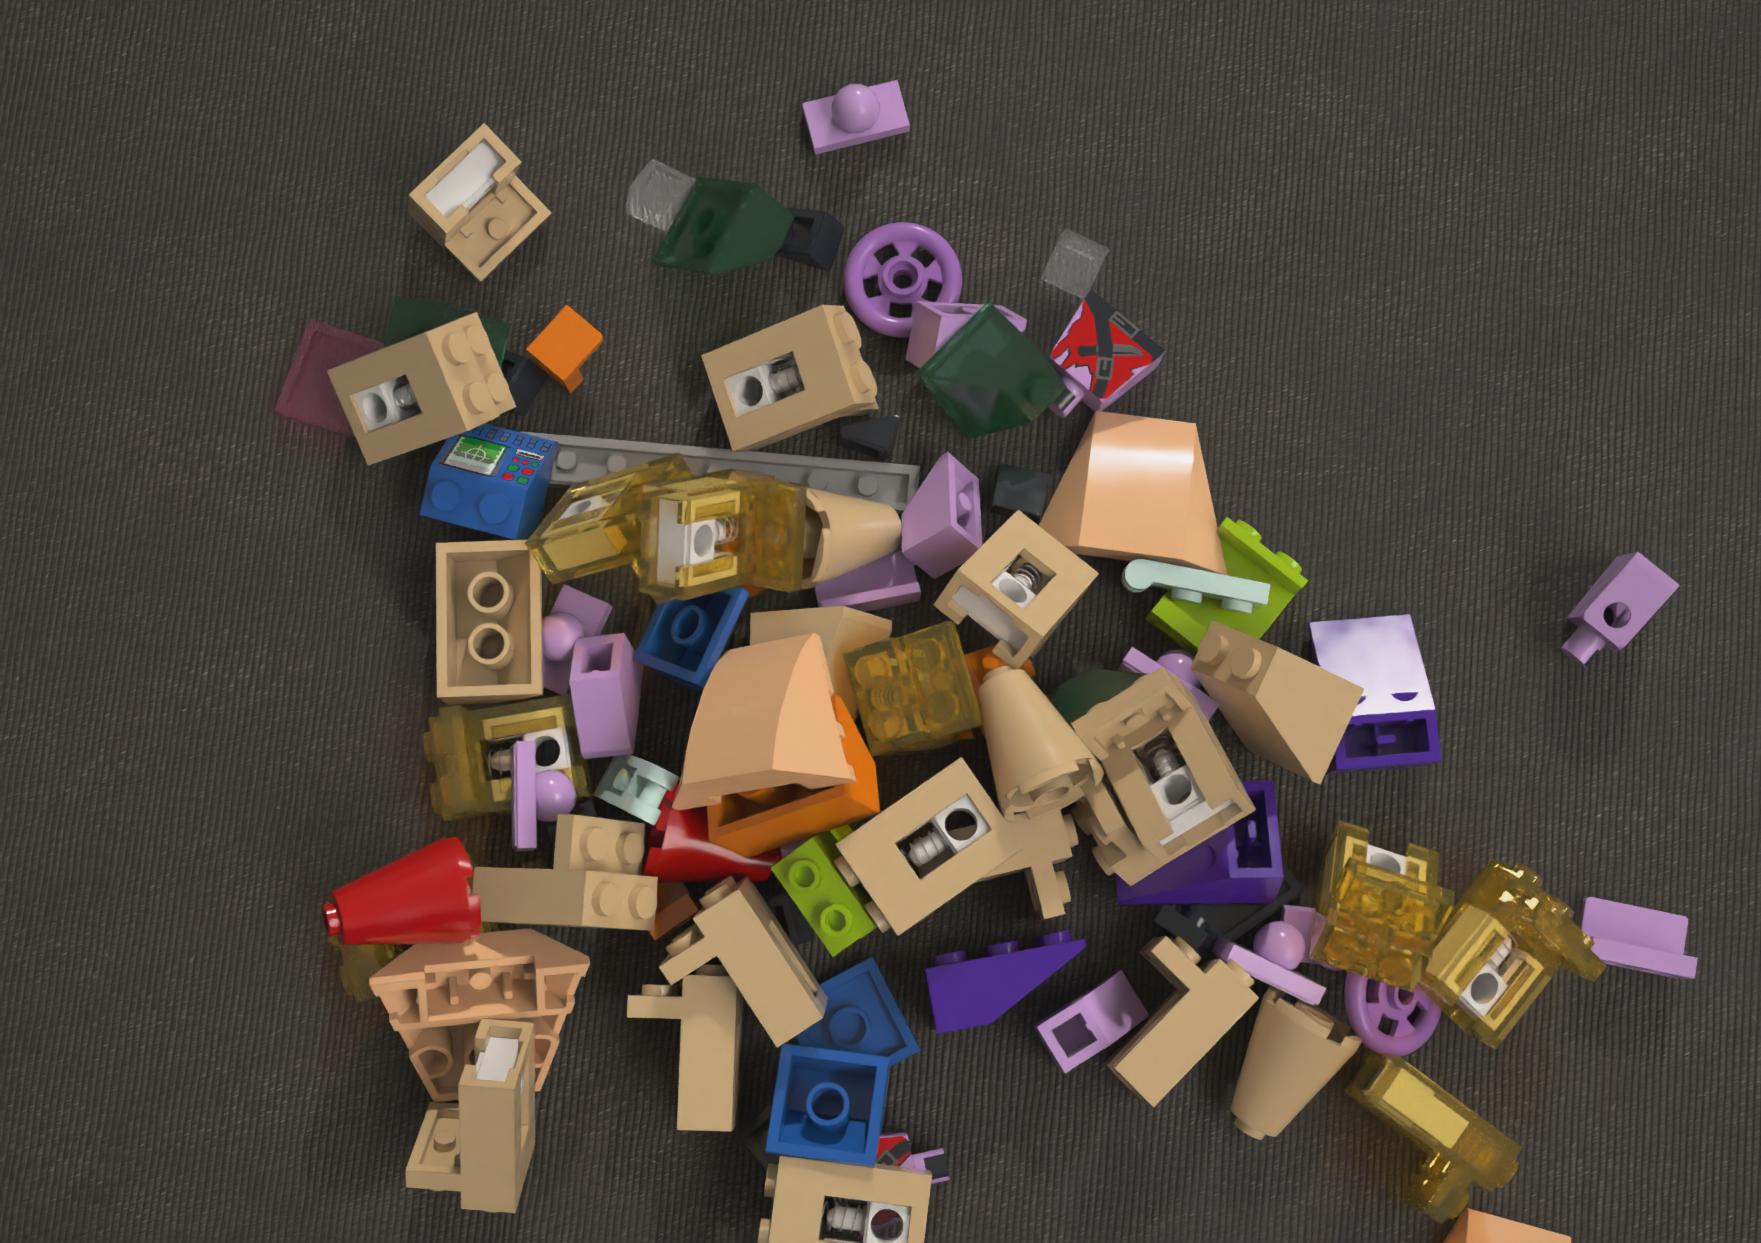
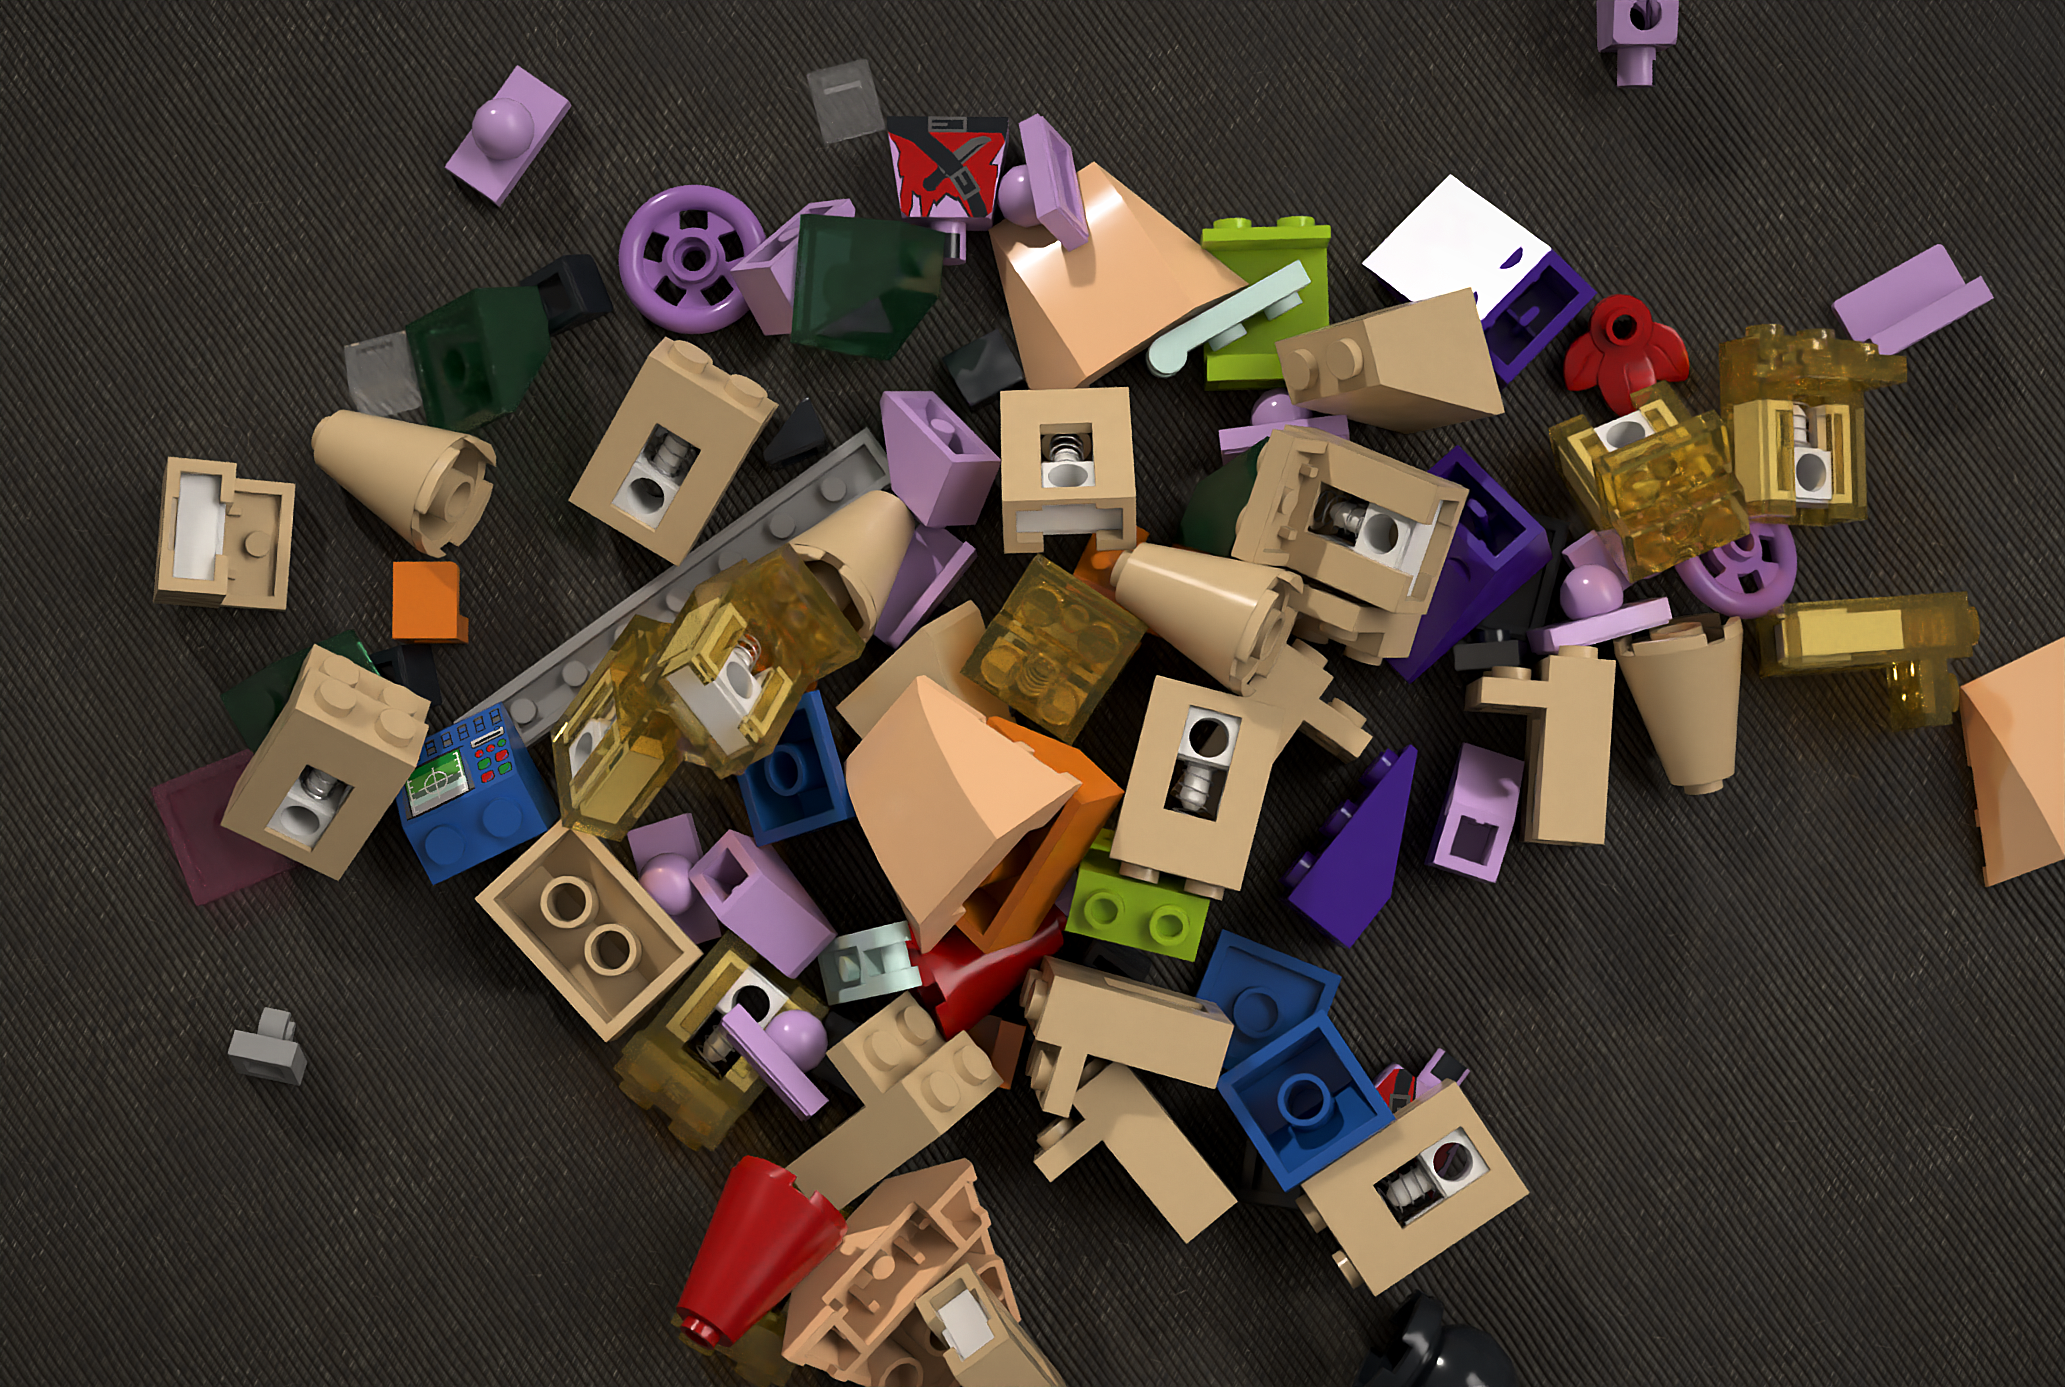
camera: 35 degrees left, 5 degrees up
(241, 532) = (270, 1051): none -> light grey tile
(622, 264) = (408, 474): none -> tan cone
(1153, 411) = (1045, 187): none -> lavender tile
(1421, 822) = (1624, 363): none -> red plate

